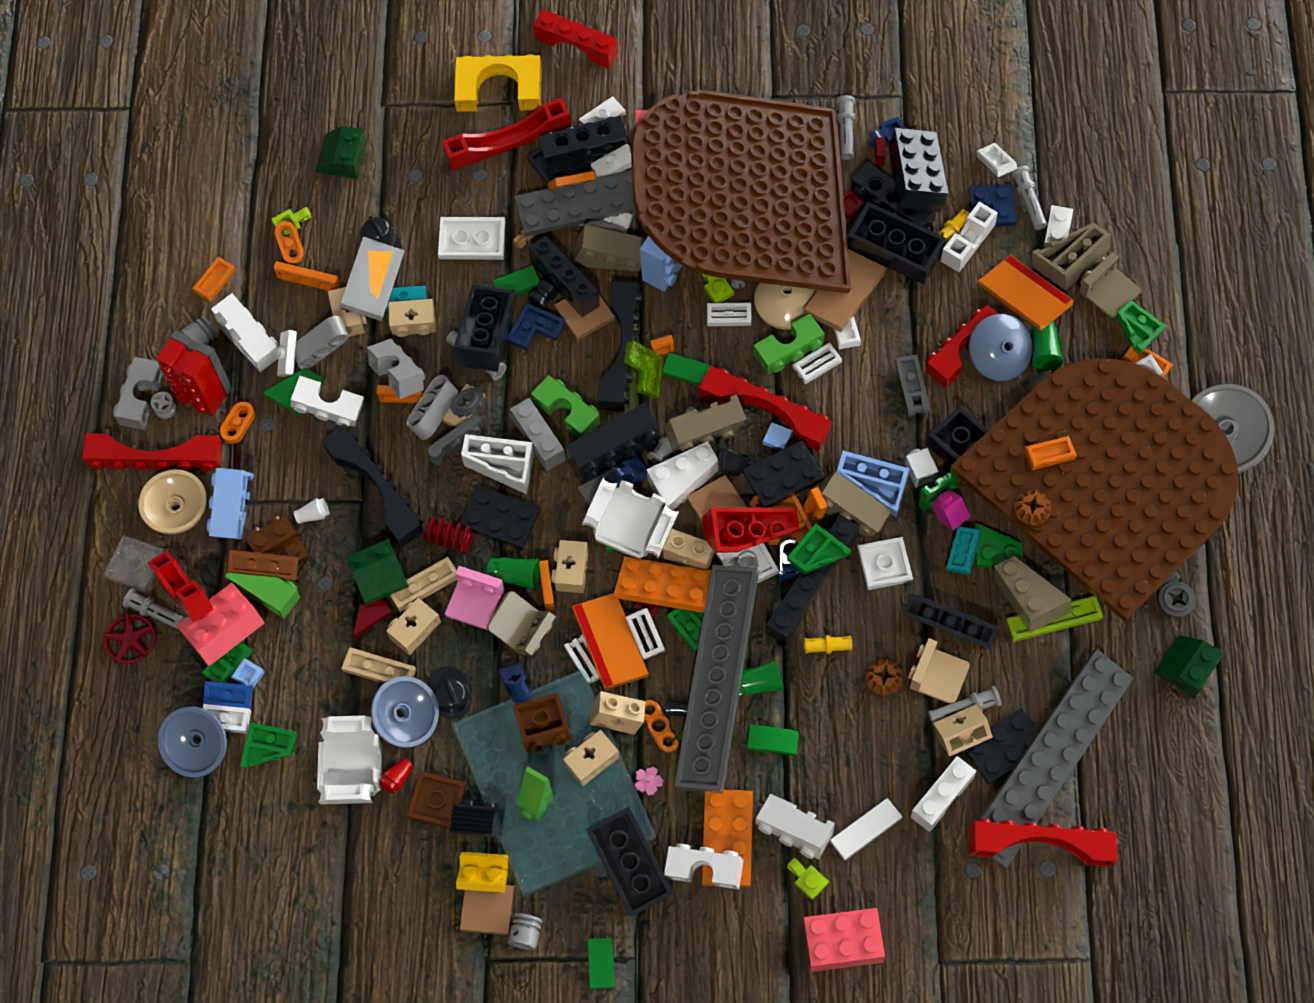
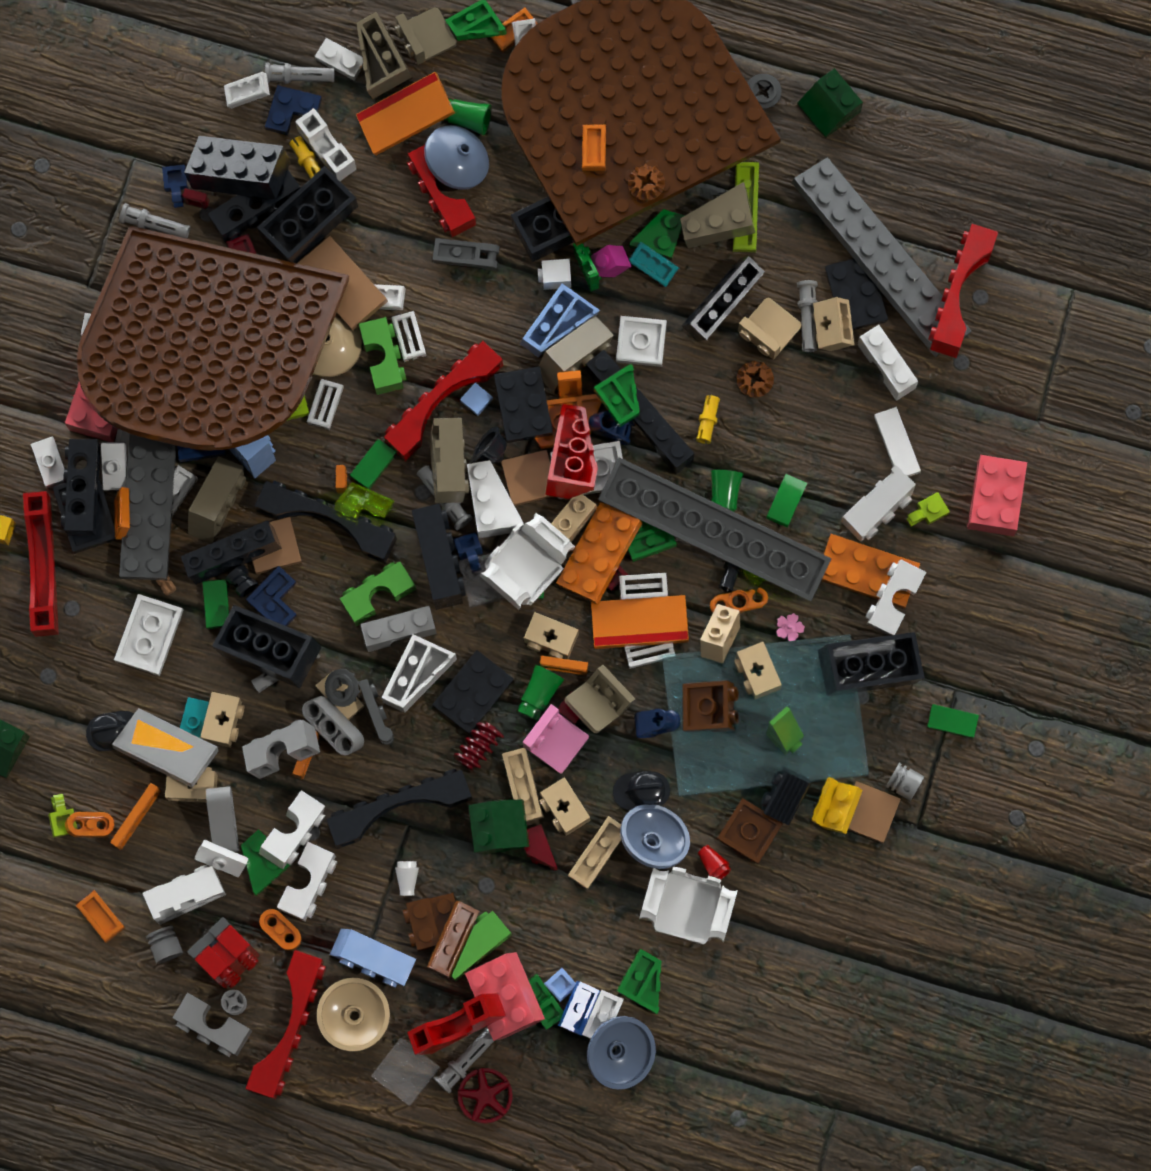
camera: 75 degrees left, 10 degrees up
(302, 435) = (300, 902): none -> white arch

